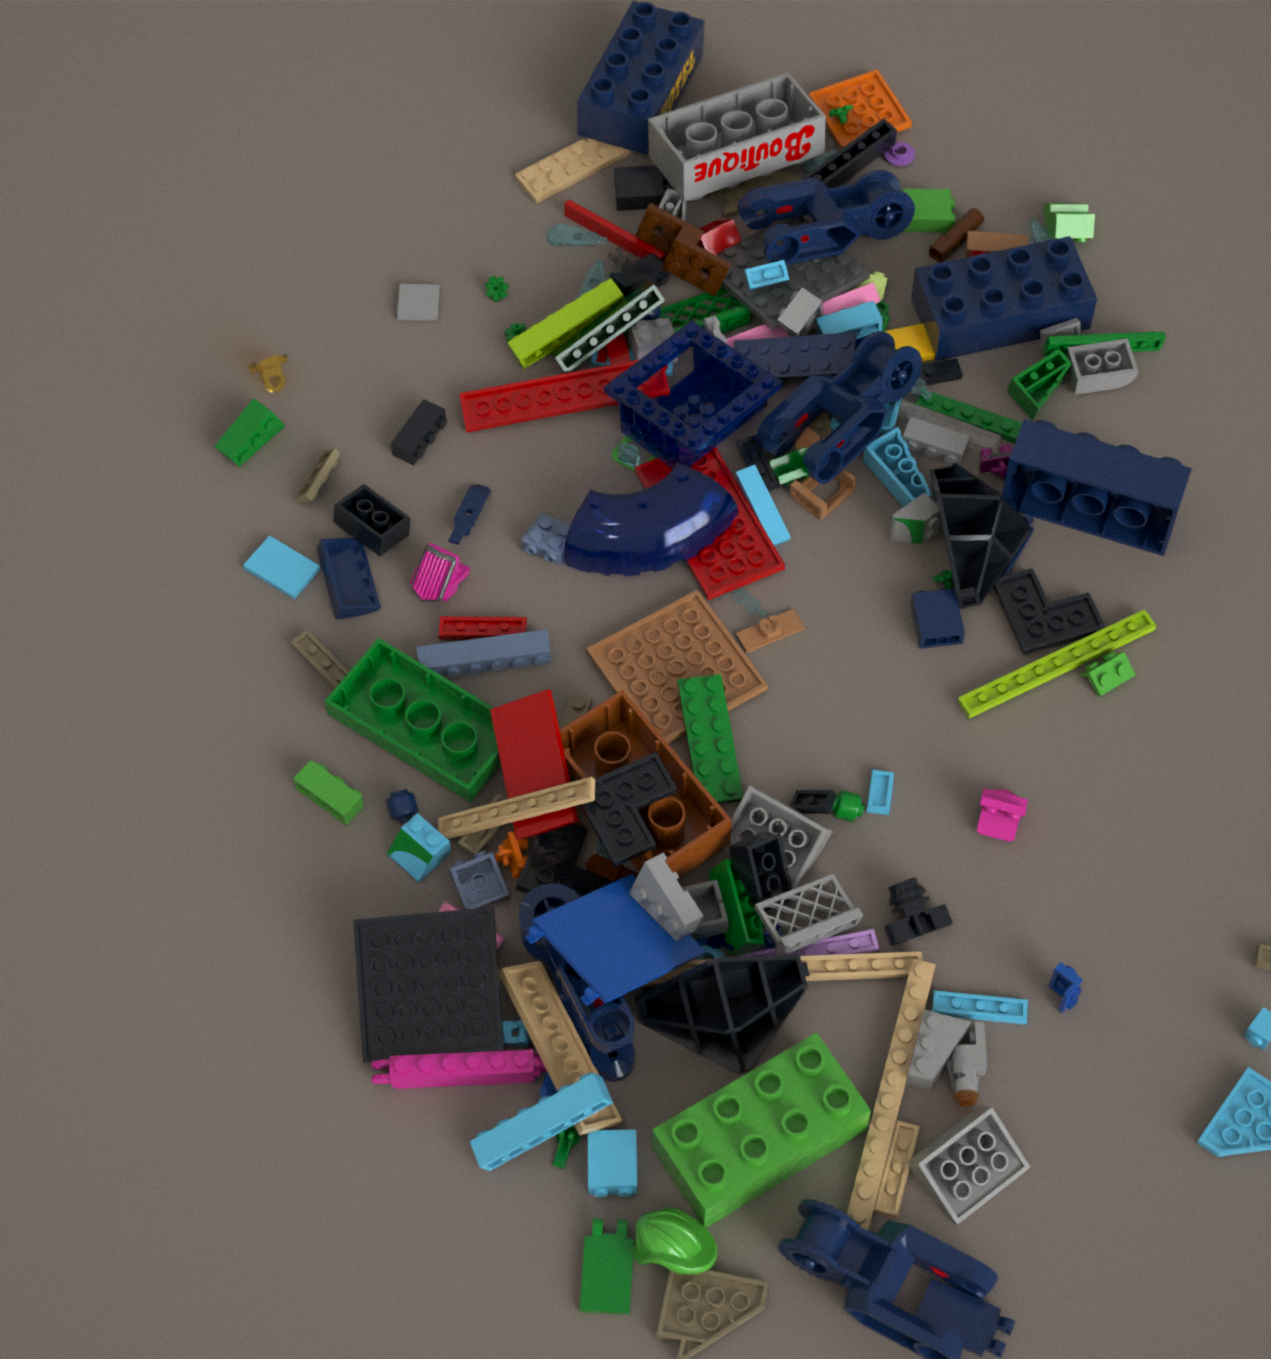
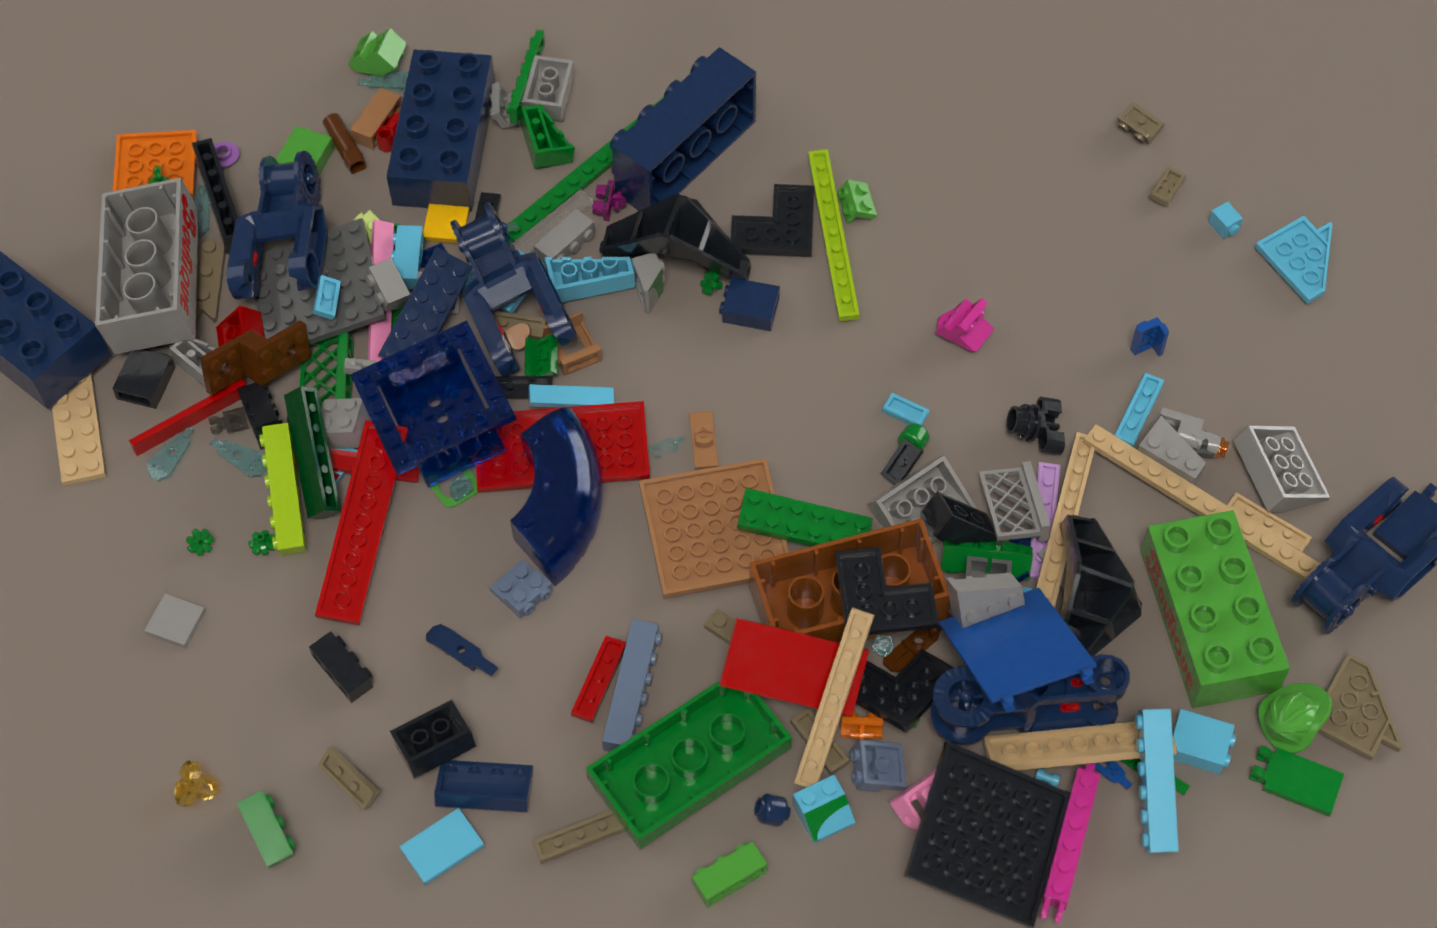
camera: 70 degrees left, 0 degrees up
(438, 574) = (522, 700): dark pink piece -> none

